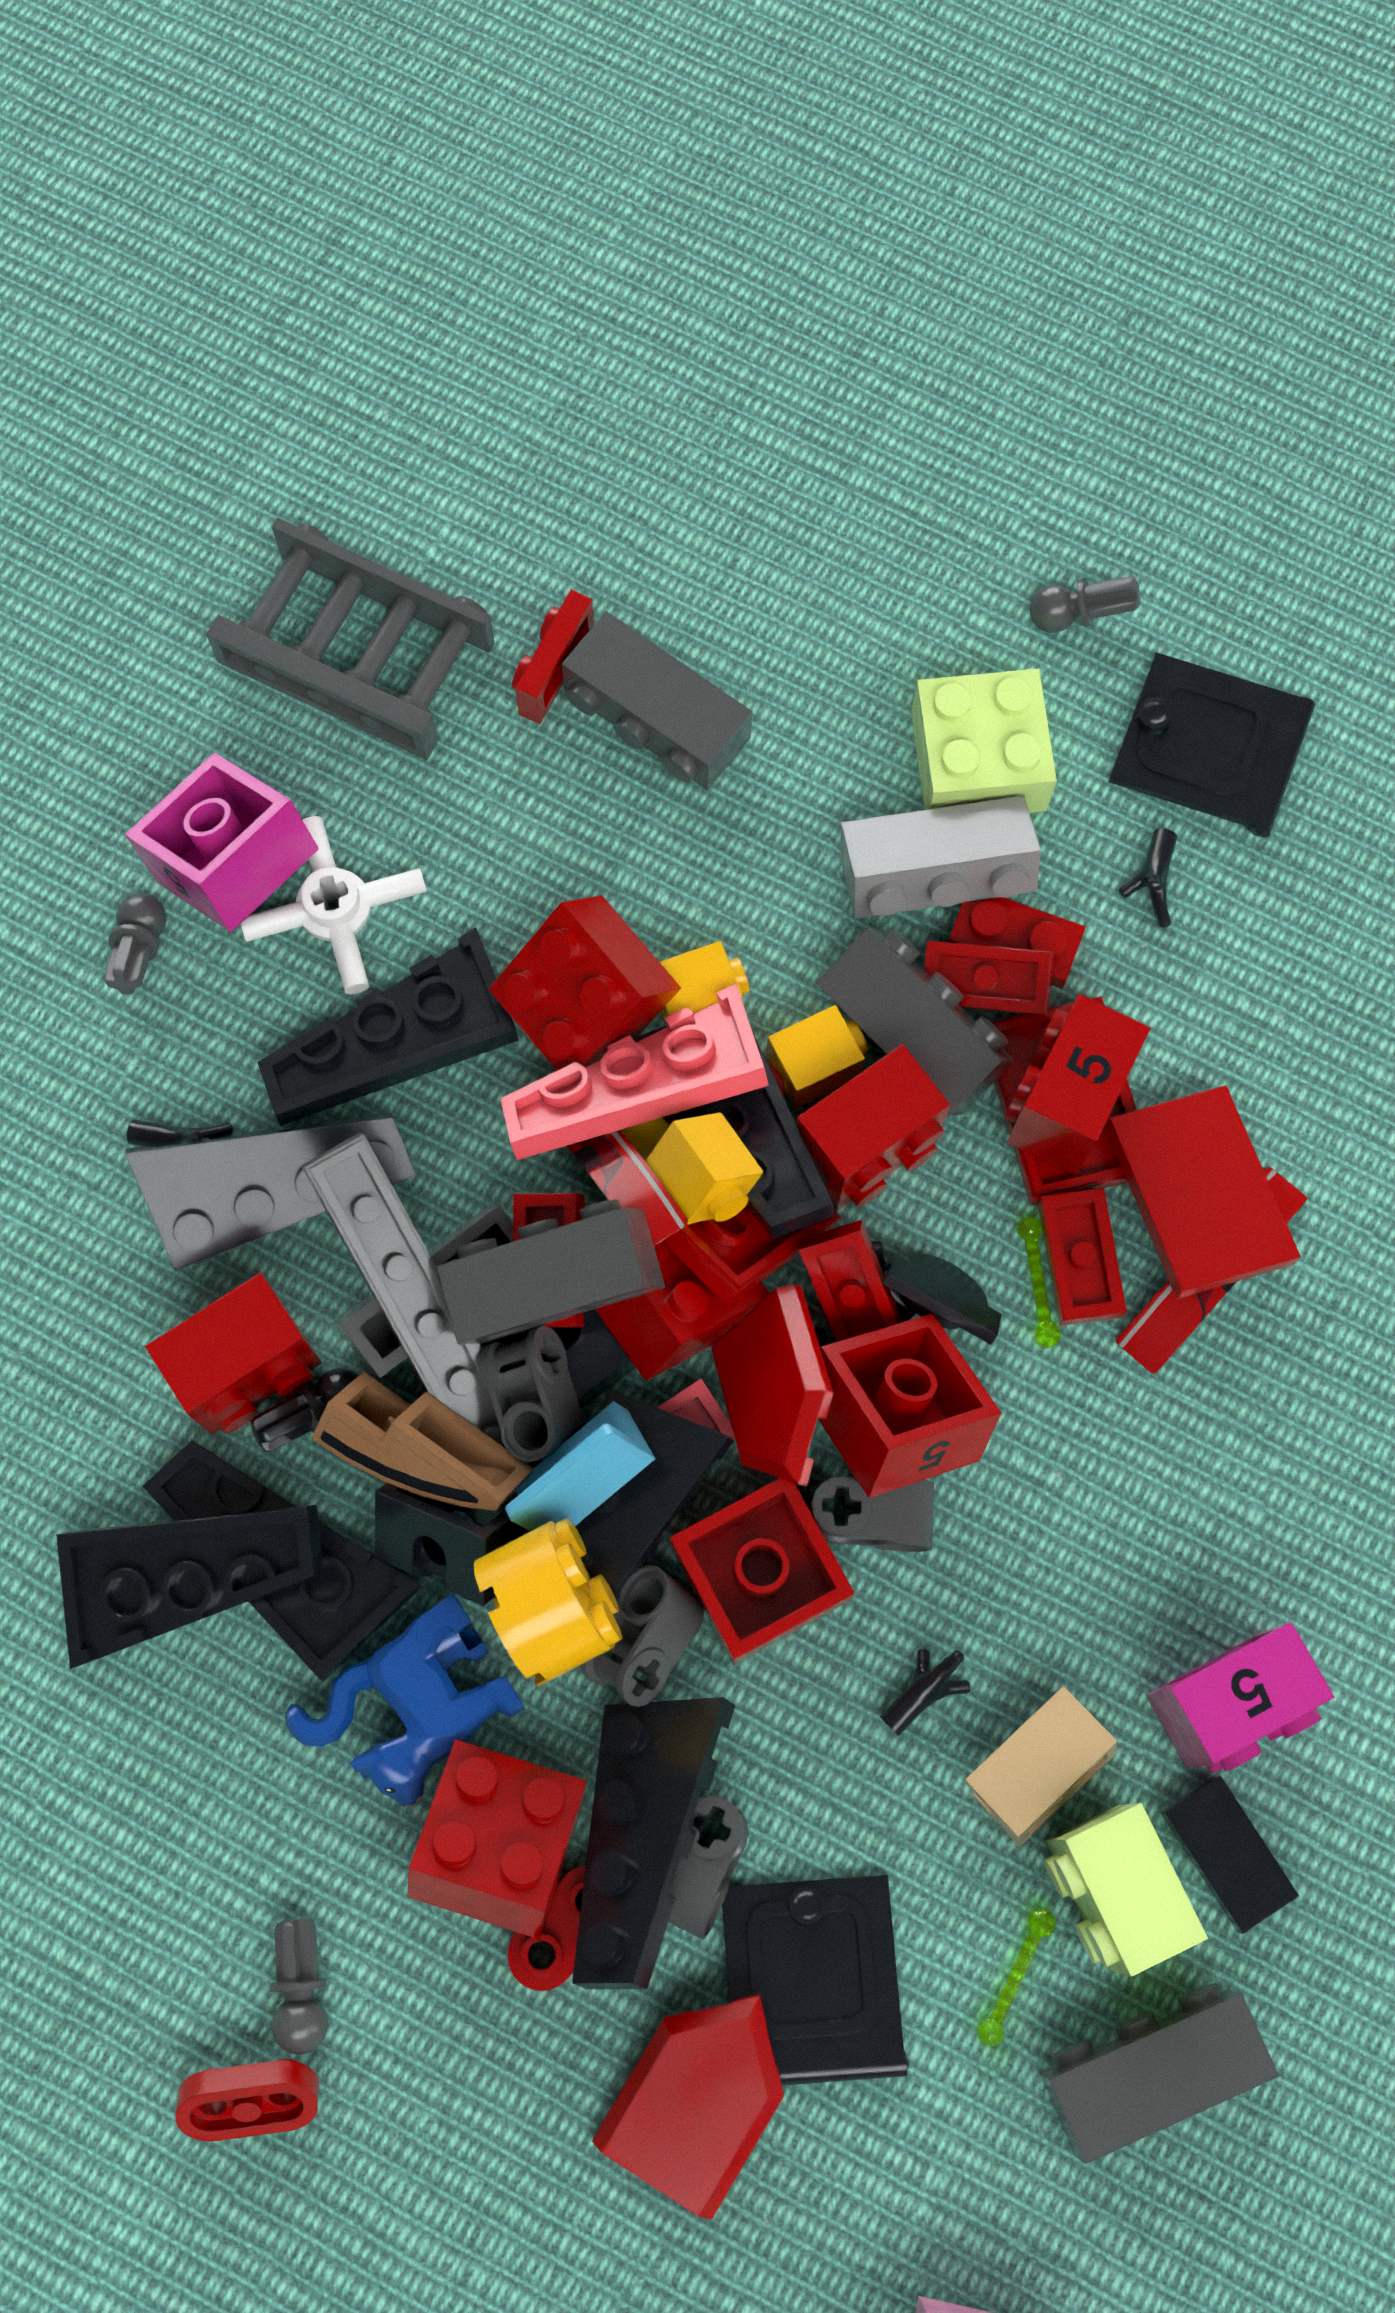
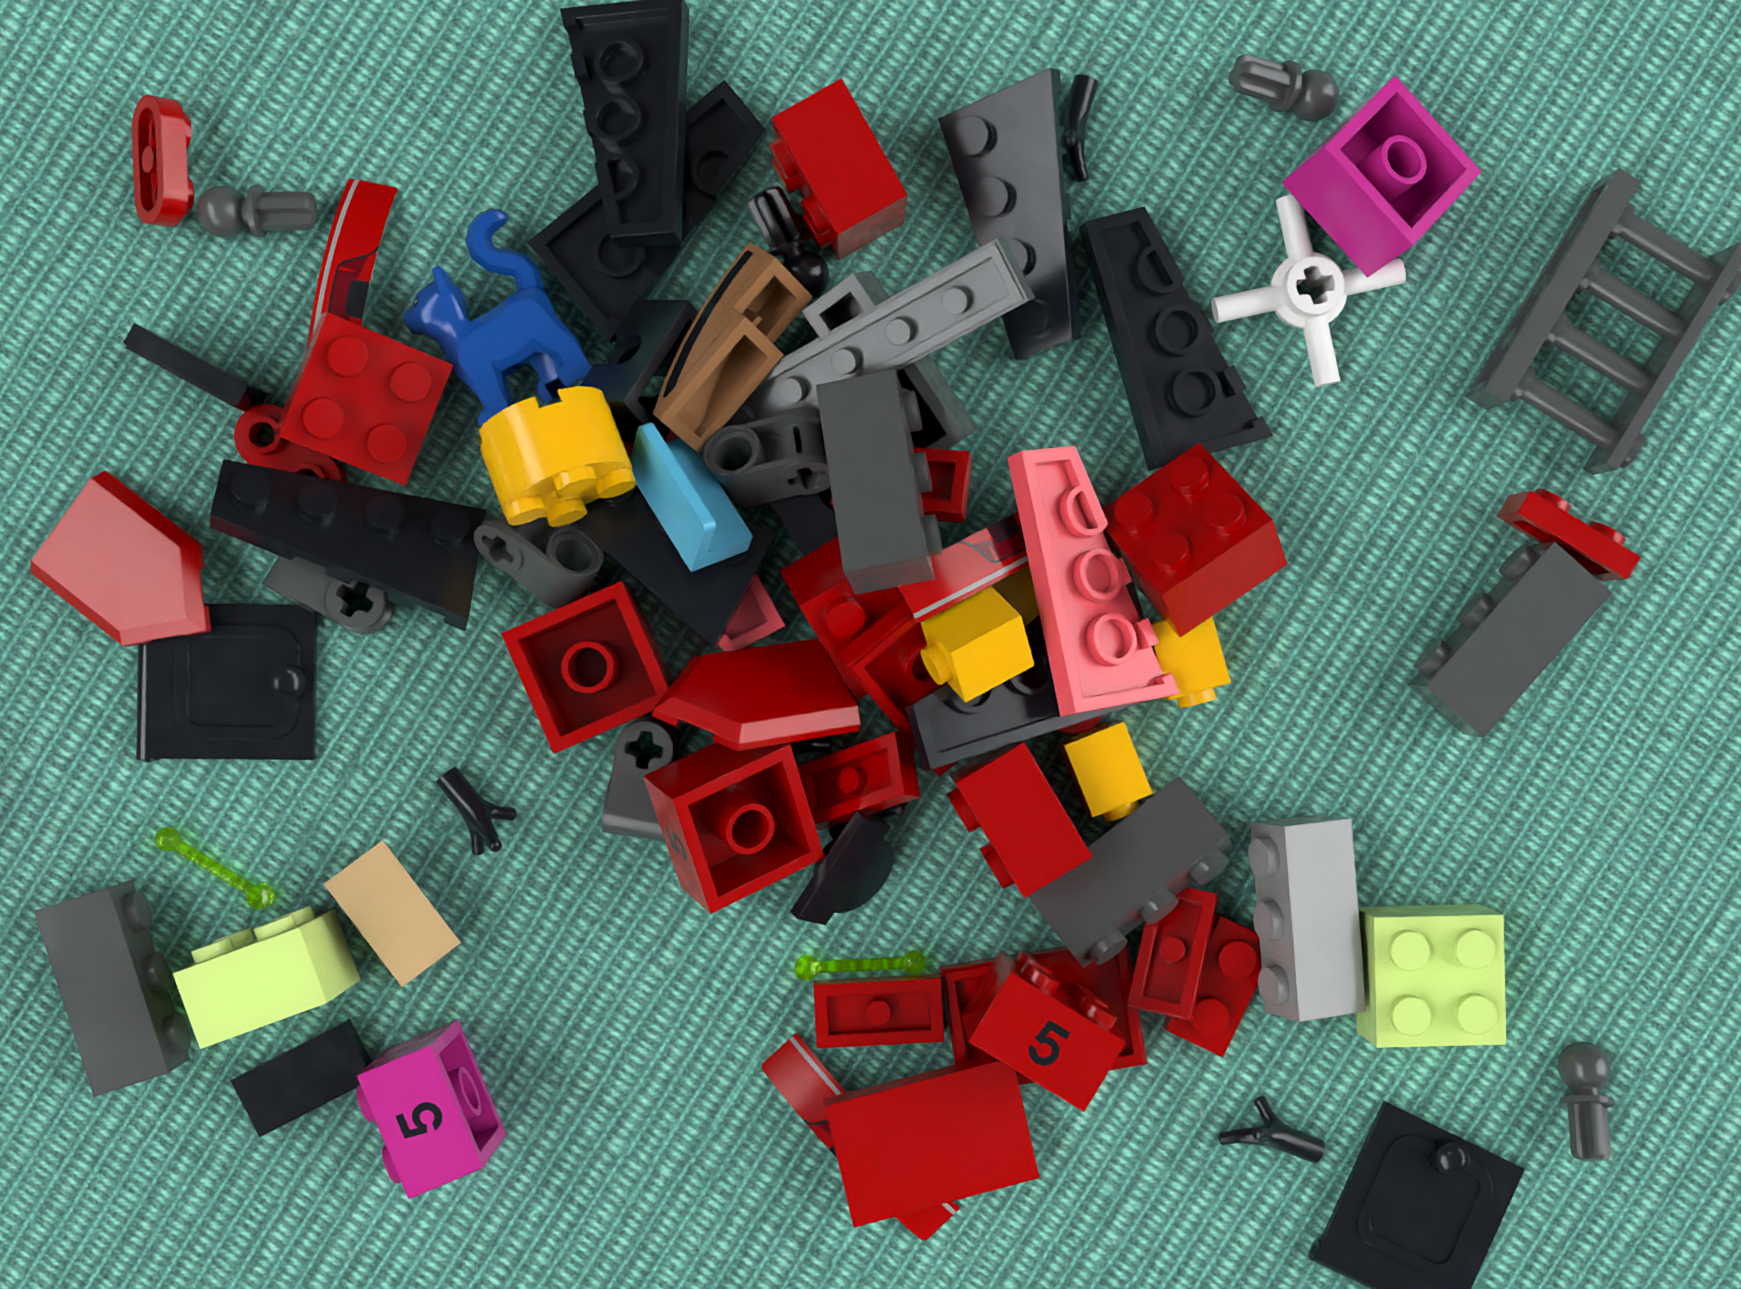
camera: 100 degrees right, 15 degrees up
(339, 1875) = (352, 251): none -> red sticker
(474, 2040) = (193, 368): none -> black tile

